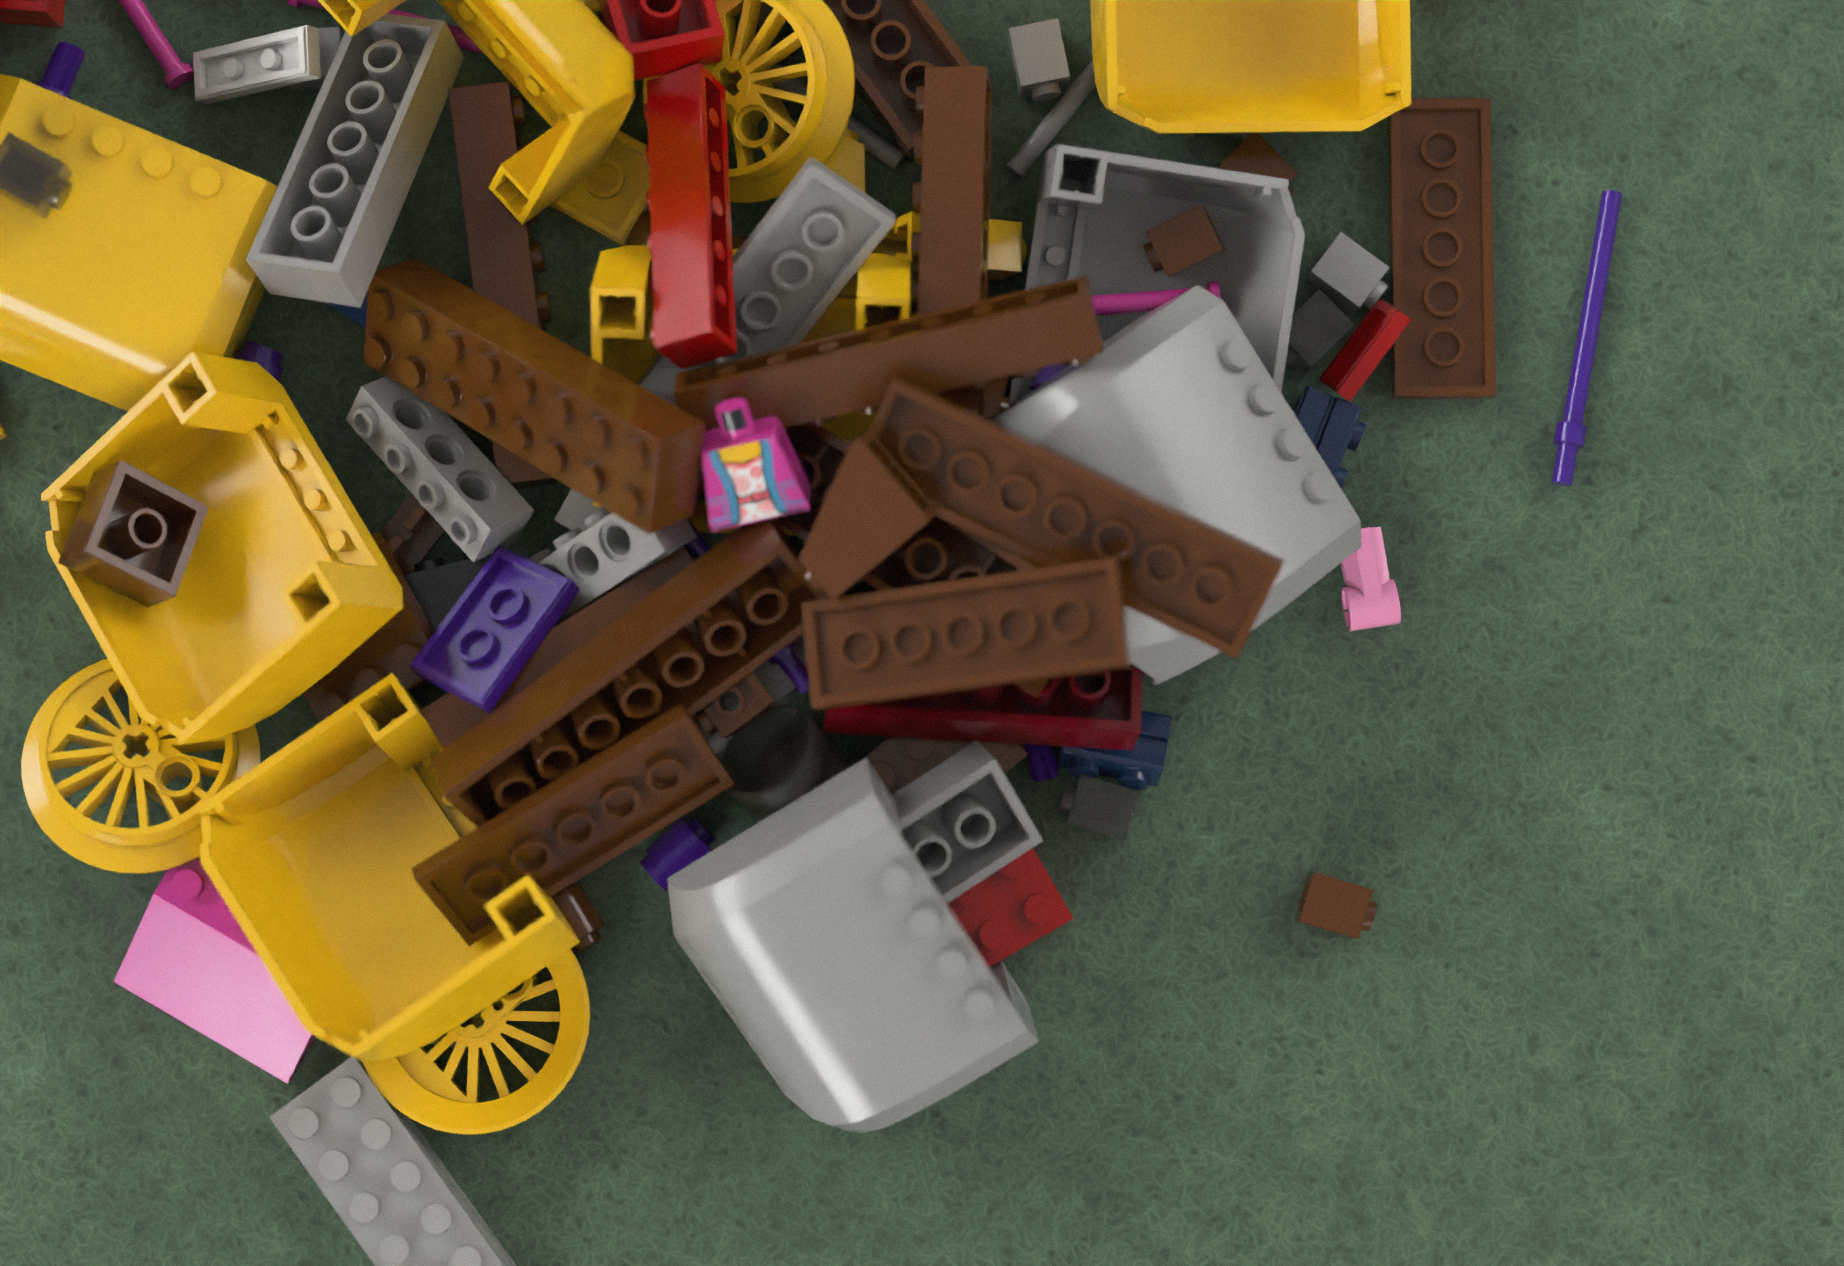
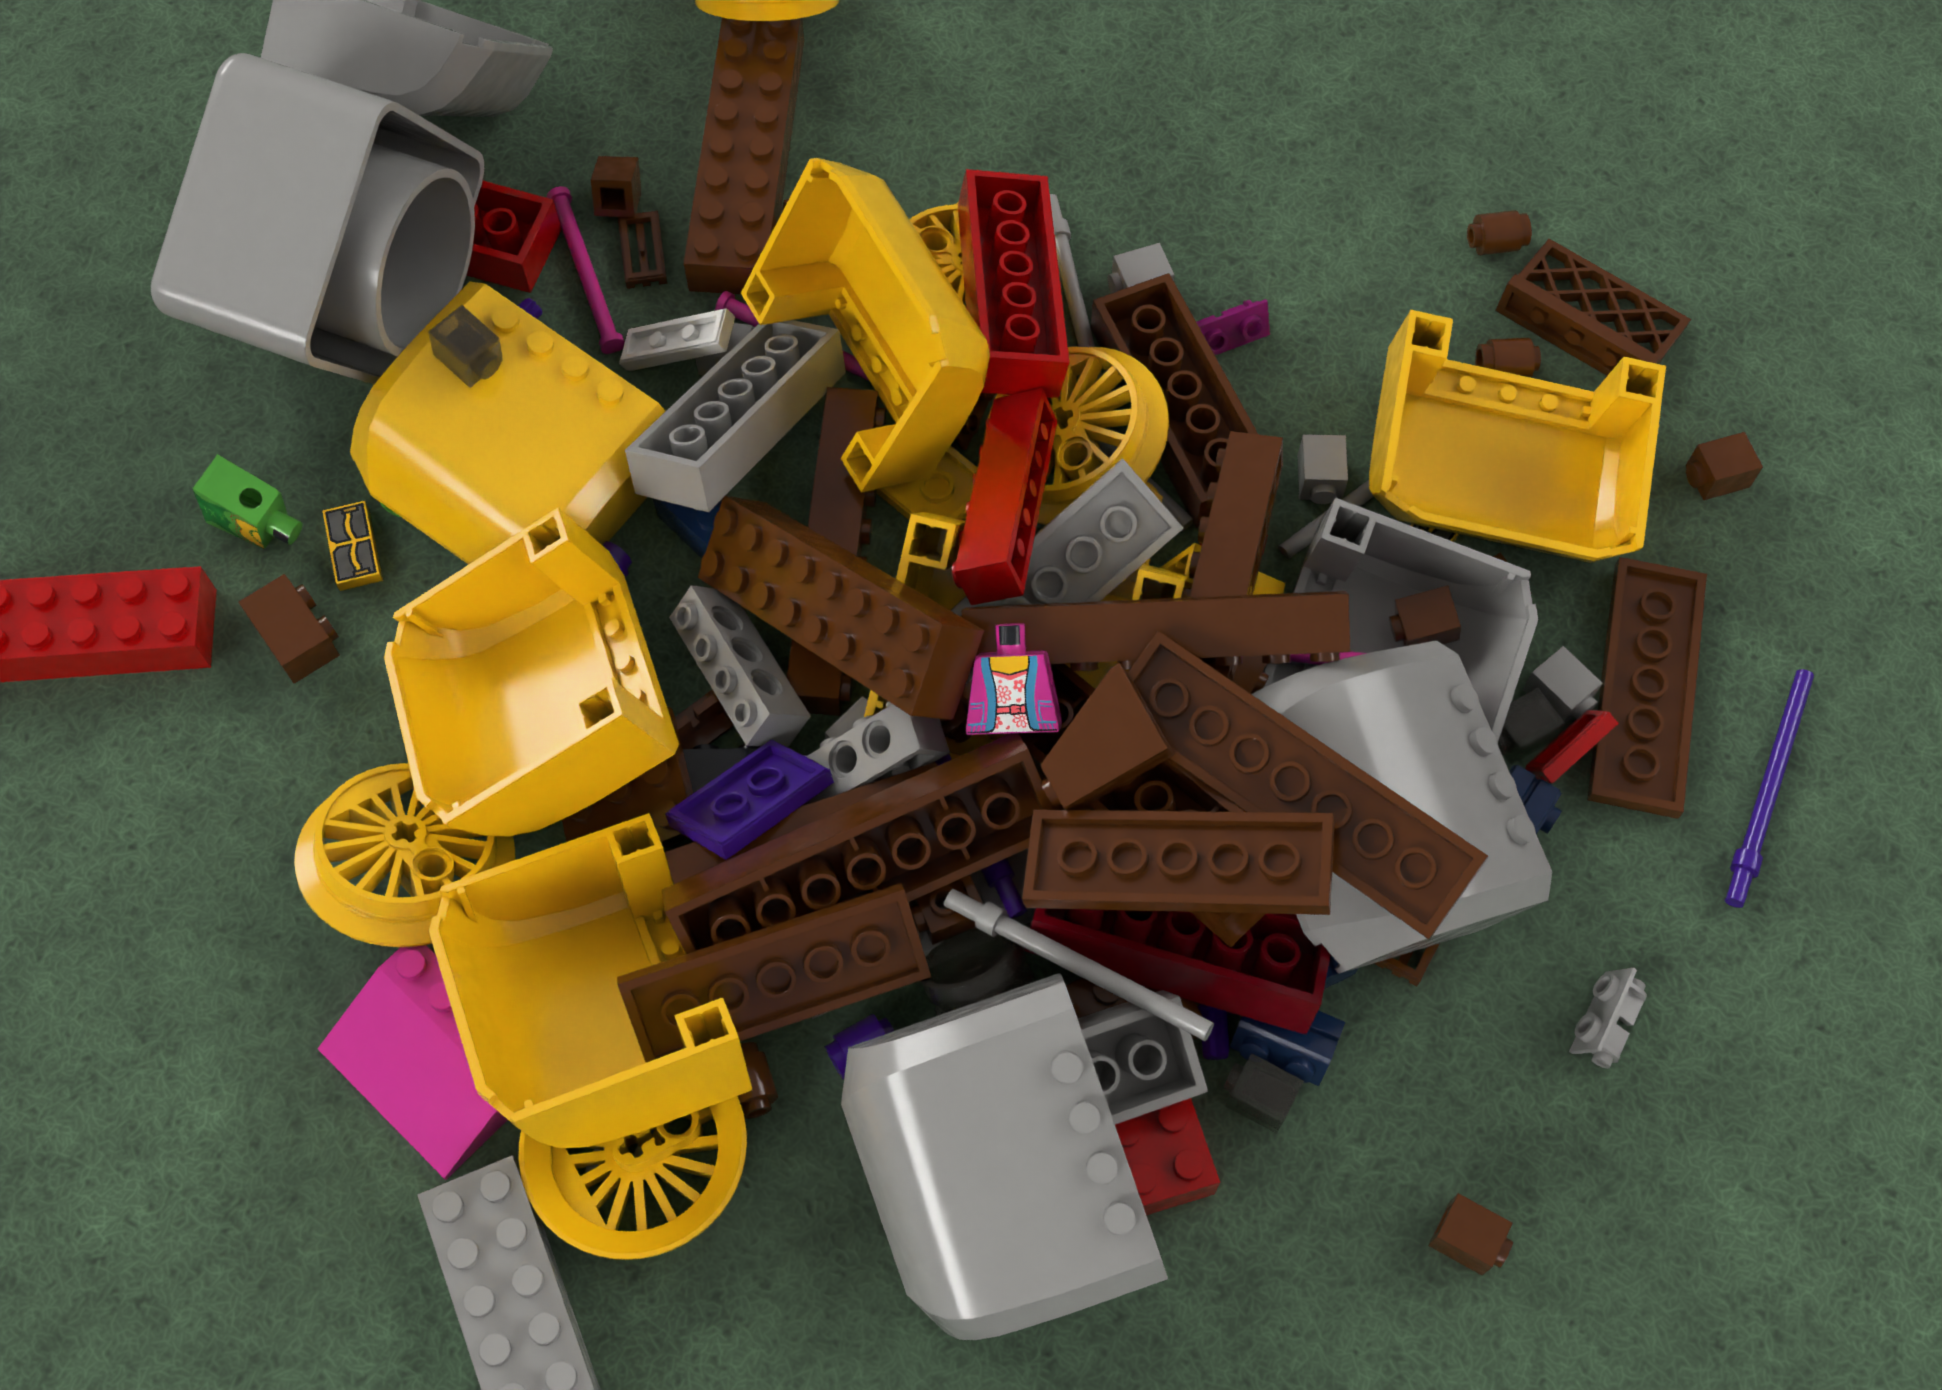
camera: 10 degrees right, 20 degrees down
(134, 534) = (461, 657): reddish brown brick -> none
(785, 717) = (994, 921): none -> light grey bar
(1368, 589) = (1543, 953): bright pink piece -> none
(1448, 618) = (1615, 998): none -> light grey hinge

